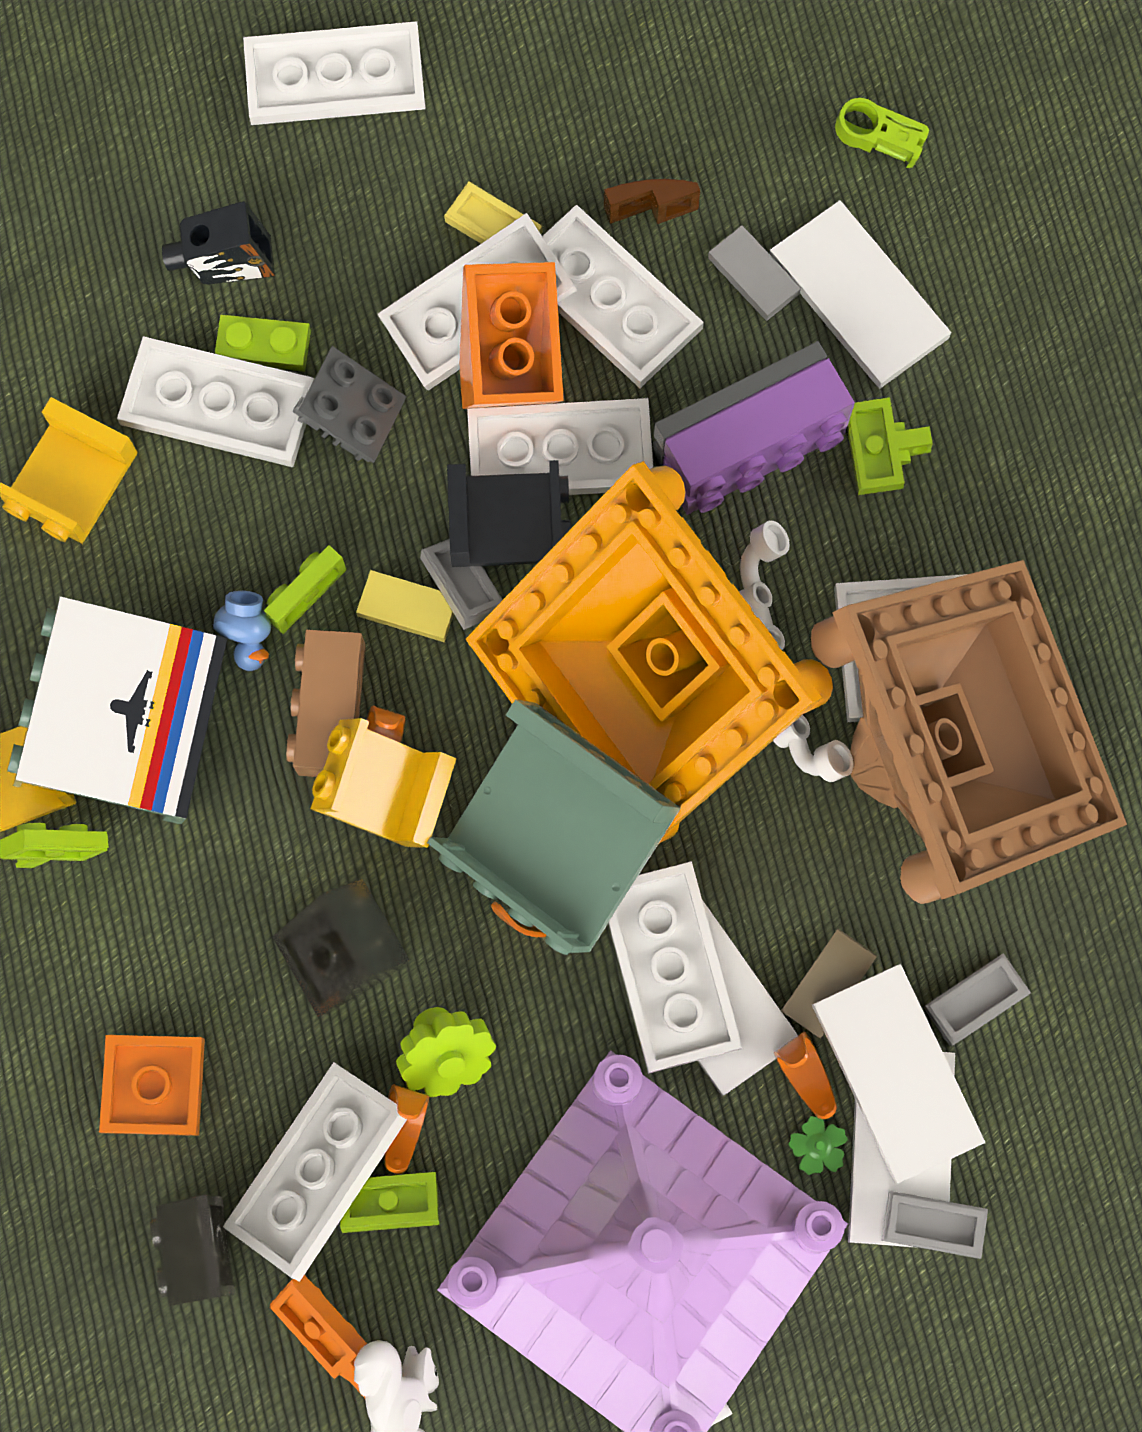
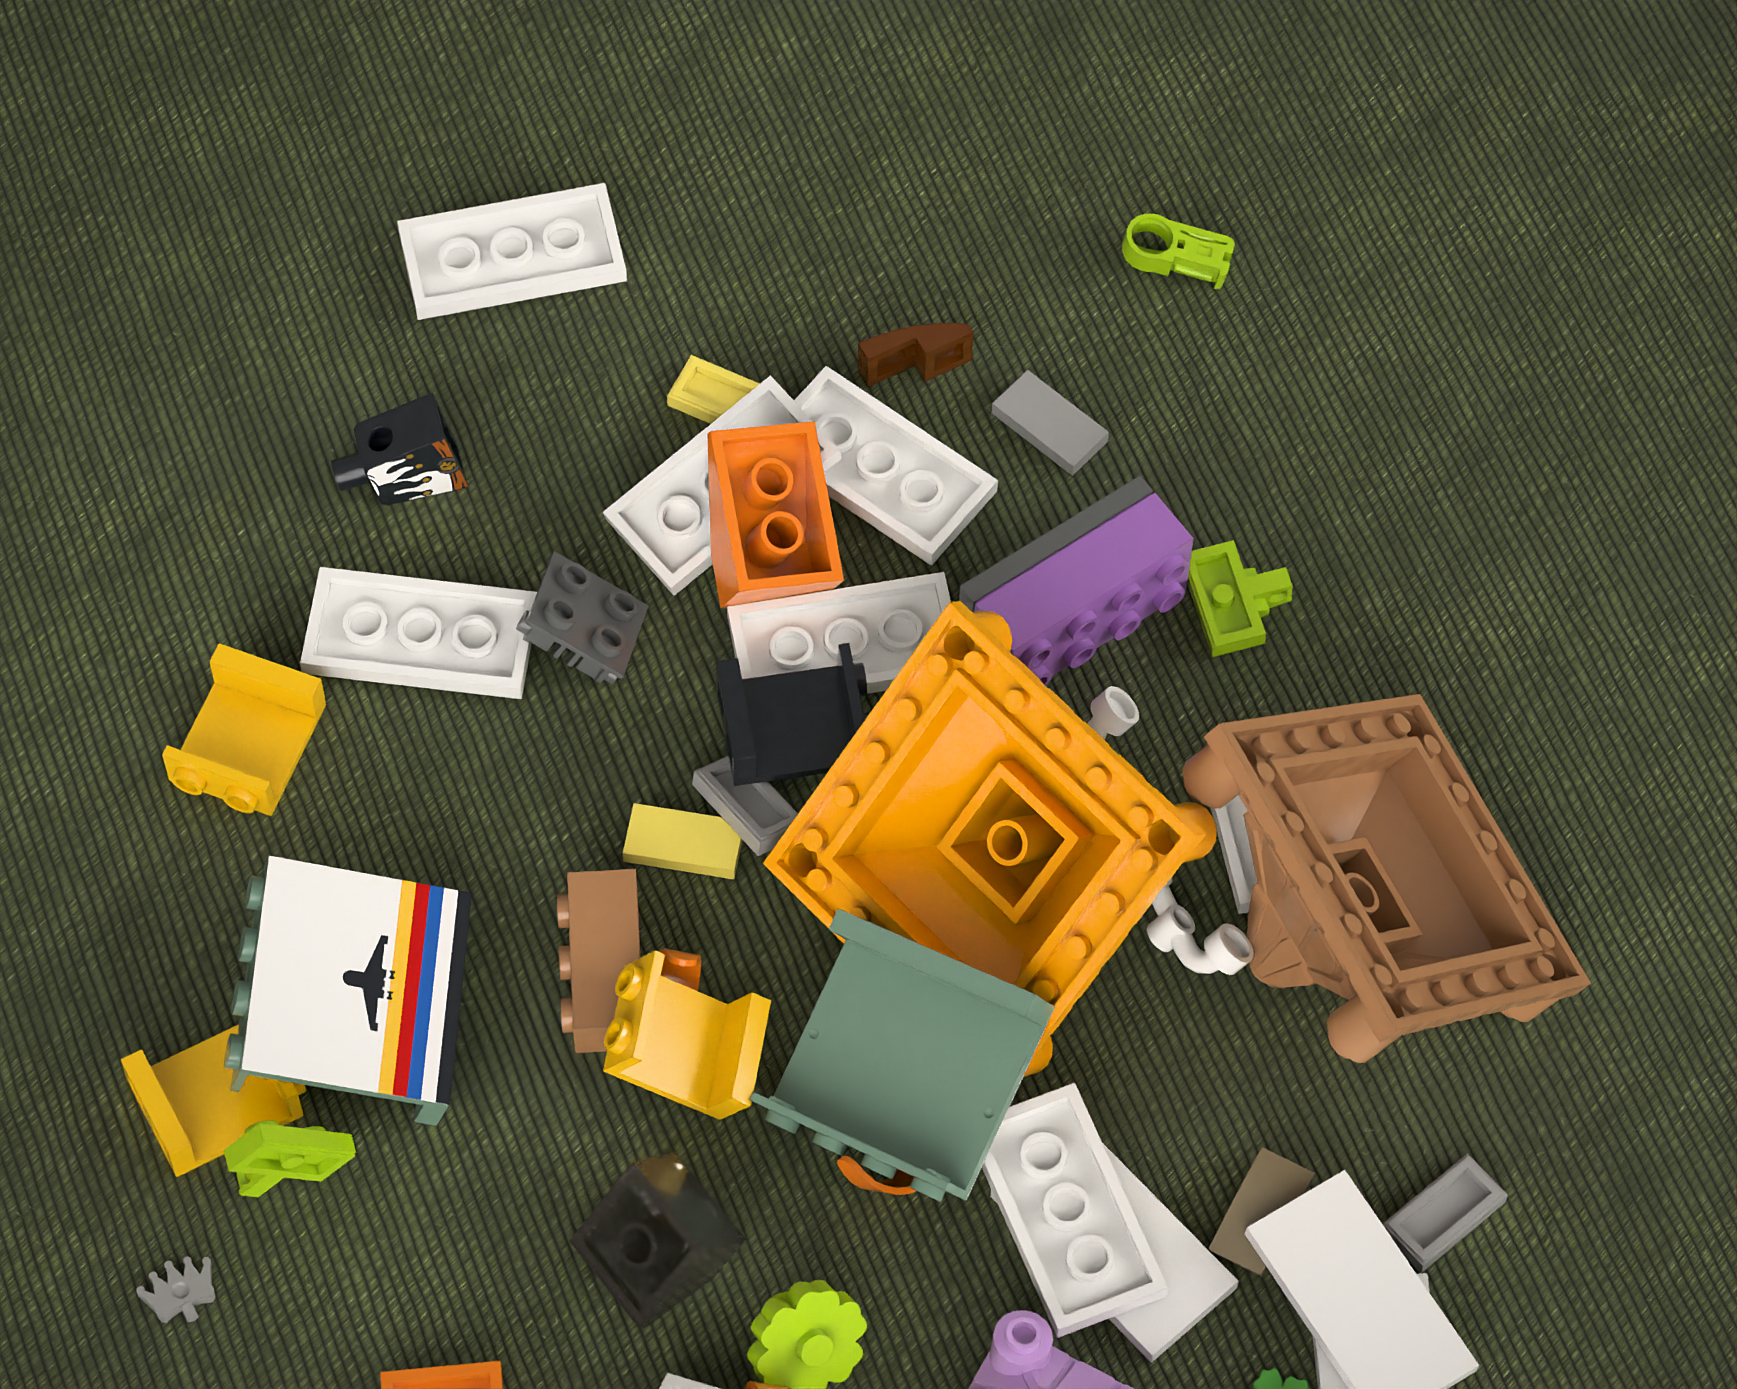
camera: 10 degrees left, 15 degrees down
(246, 623) = (489, 877): medium blue animal -> none
(264, 341) = (467, 558): lime plate -> none
(316, 577) = (566, 820): lime plate -> none
(807, 1075) = (1248, 1319): orange helmet -> none
(860, 294) = (1181, 433): white tile -> none

